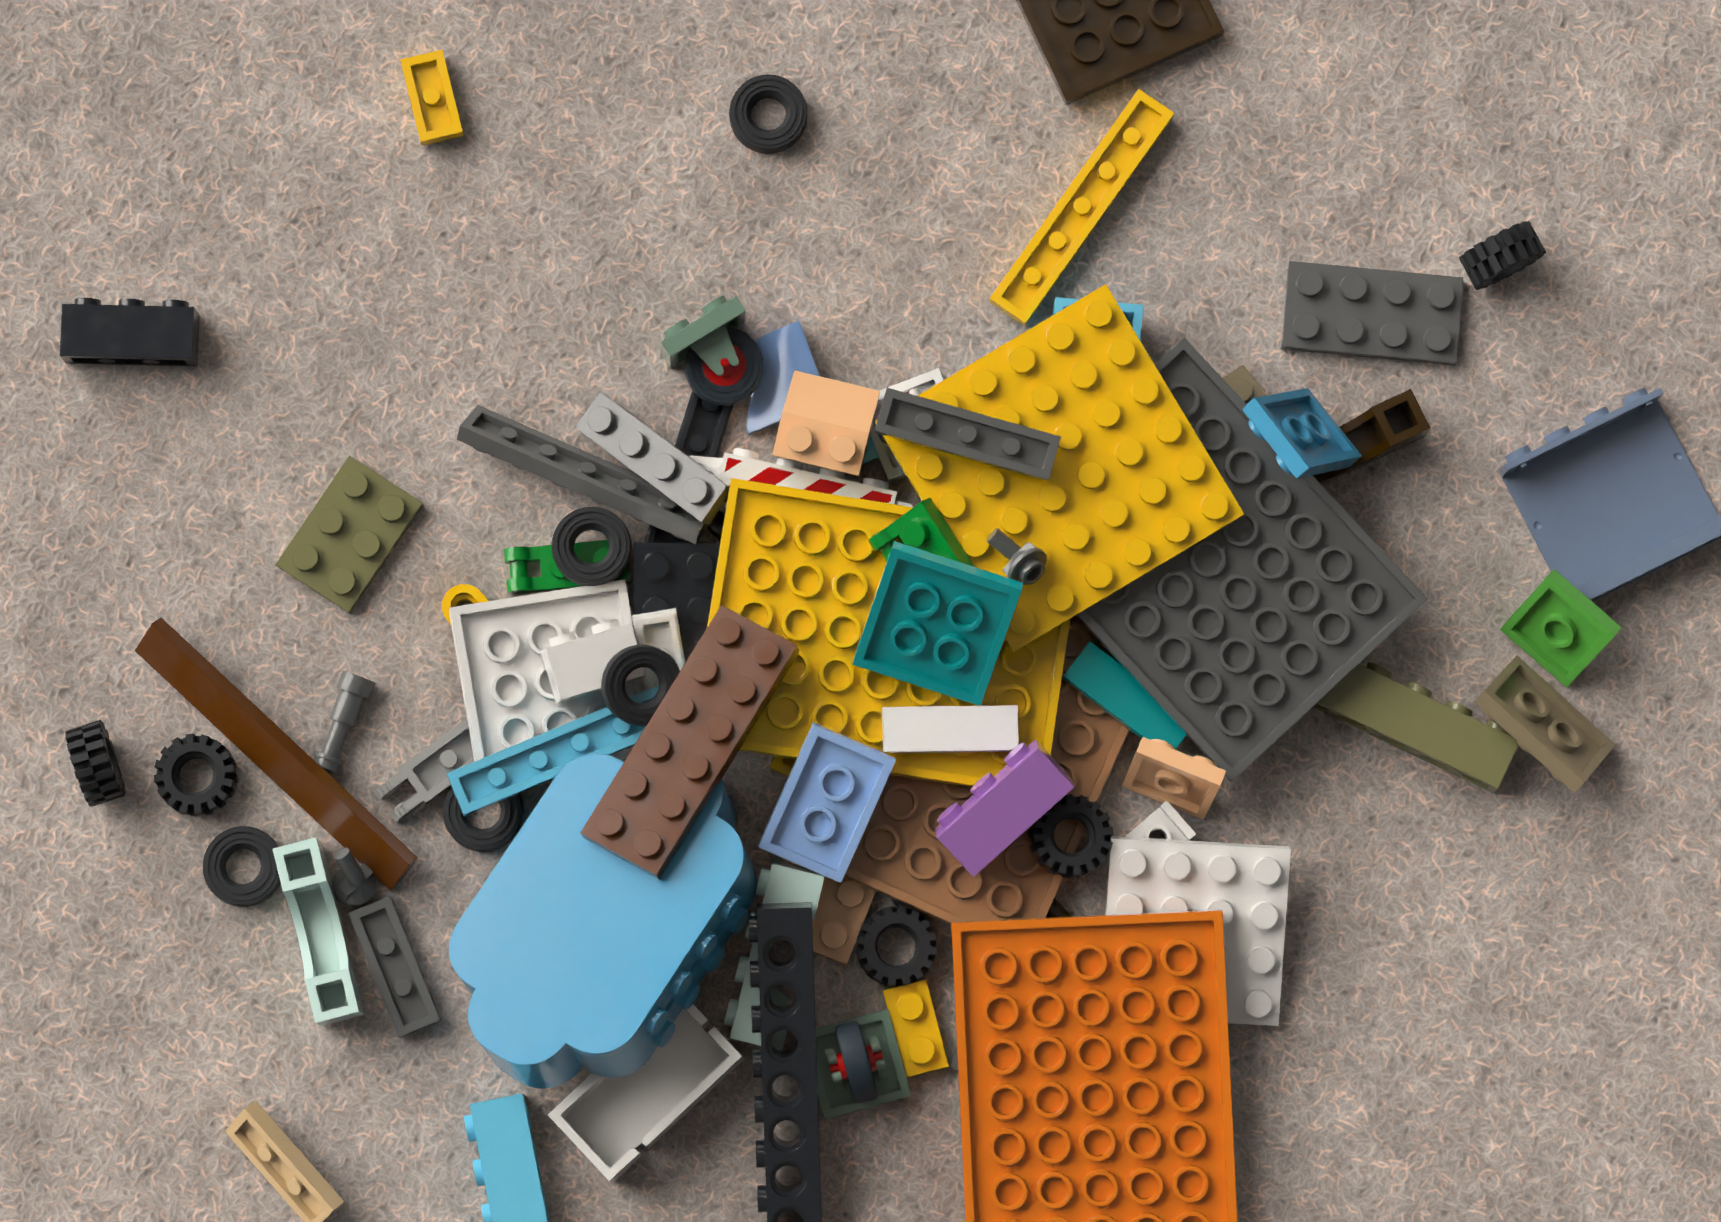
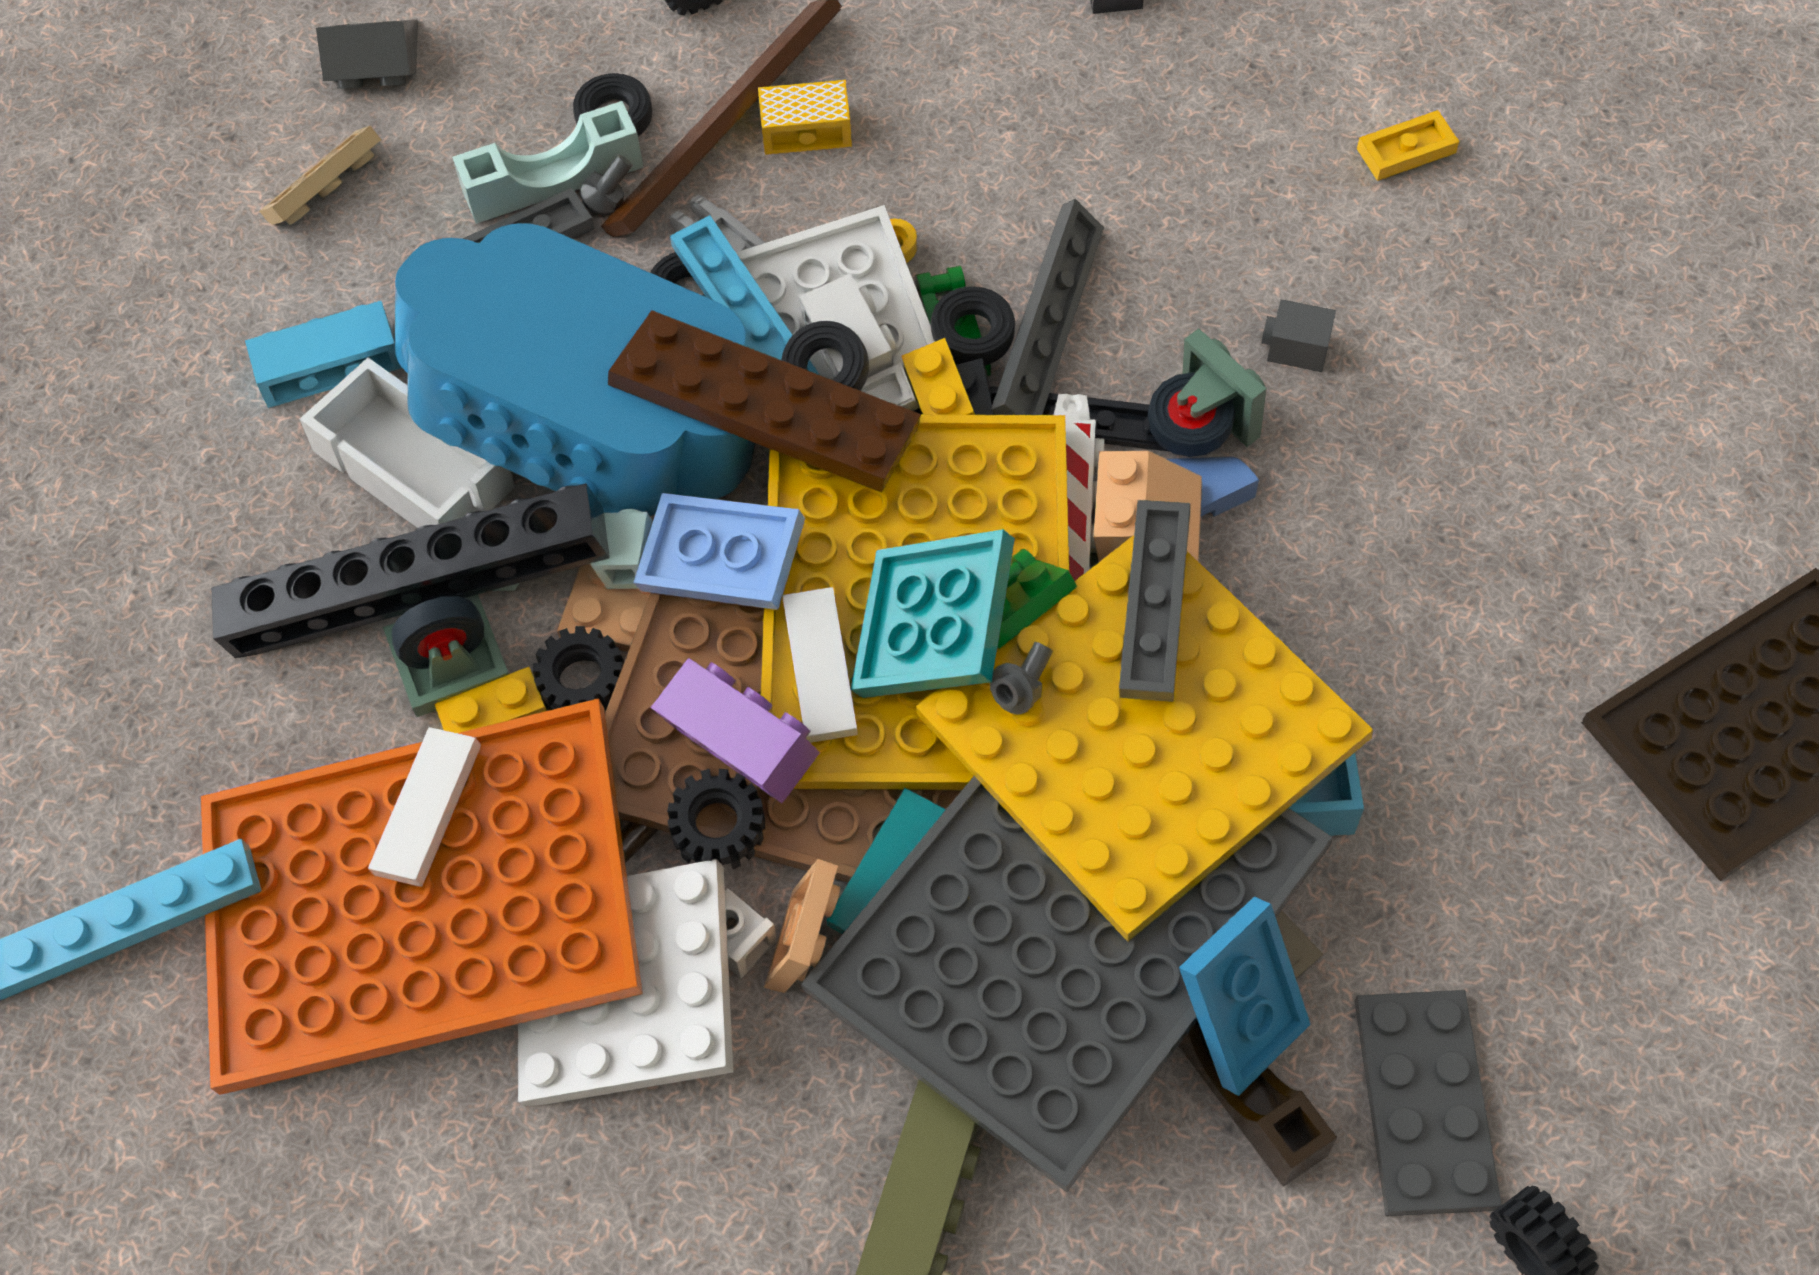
camera: 85 degrees right, 20 degrees down
(122, 1110) = (368, 51): none -> dark grey slope
(195, 748) = (699, 76): black tyre -> none
(297, 673) = (805, 117): none -> yellow panel
(344, 715) = (794, 165): dark grey piece -> none
(349, 534) = (951, 145): olive plate -> none
(641, 250) = (1299, 335): none -> dark grey brick
(654, 458) = (1078, 365): plate -> none
(665, 587) = (937, 380): none -> yellow plate
(762, 88) = (1484, 408): black tyre -> none
(1027, 1079) = (424, 807): none -> white tile
(1081, 207) = (1480, 756): yellow plate -> none

